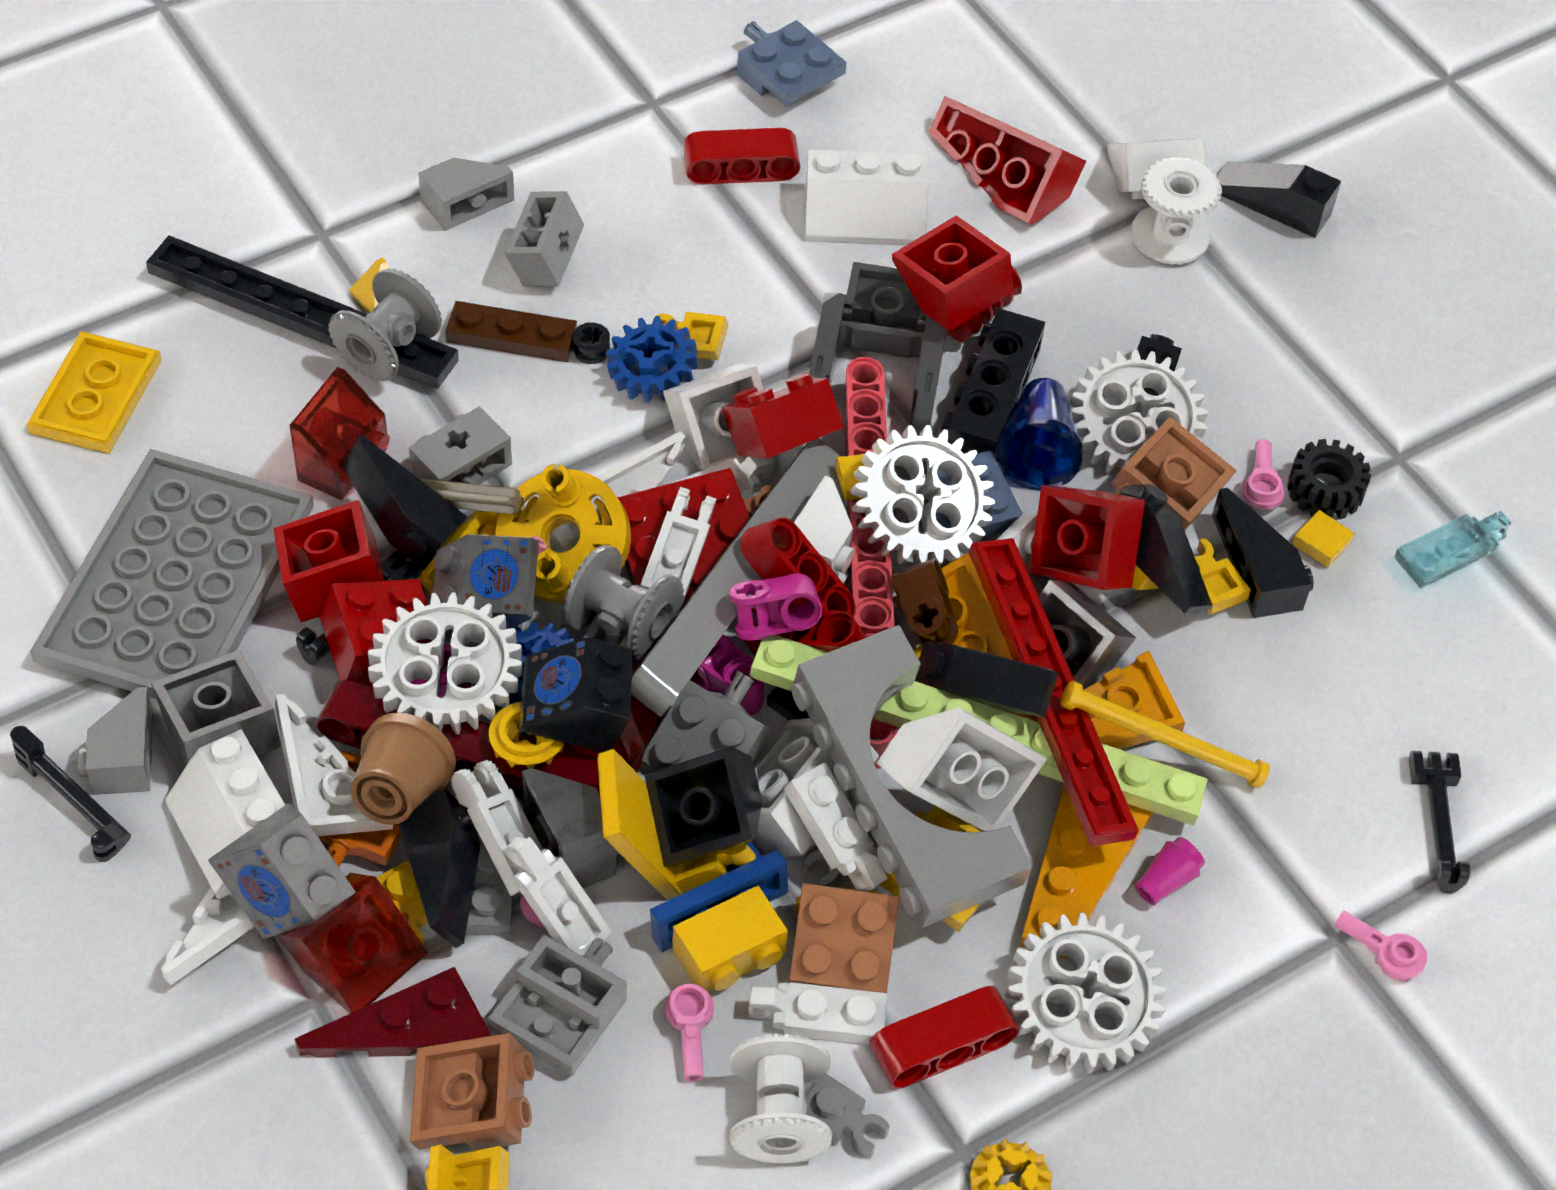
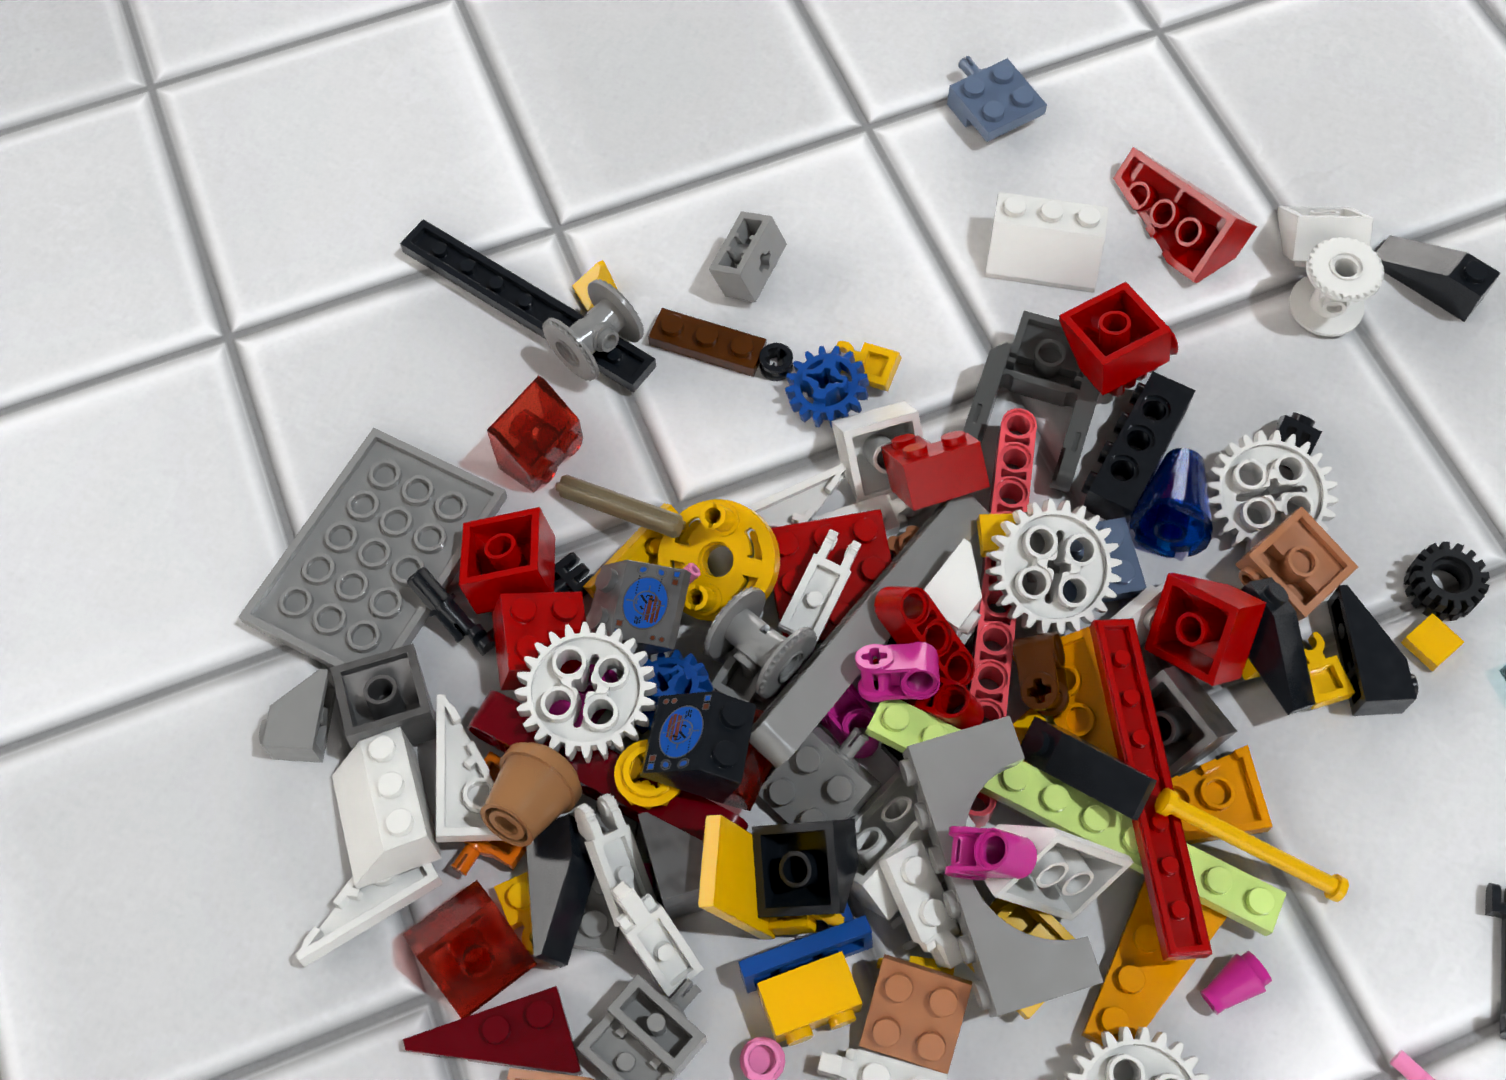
camera: 15 degrees right, 10 degrees up
(32, 757) = (280, 805): black hinge -> none
(94, 392) = (338, 363): yellow tile -> none
(259, 611) = (440, 603): none -> black axle
(281, 874) = (412, 883): flat silver slope -> none
(402, 505) = (584, 520): black slope -> none
(463, 451) = (660, 460): light grey brick -> none
(464, 190) = (686, 199): light grey slope -> none
(741, 156) = (938, 188): red beam -> none
(897, 747) = (989, 854): none -> dark pink piece
(1263, 487) = (1381, 582): bright pink plate -> none

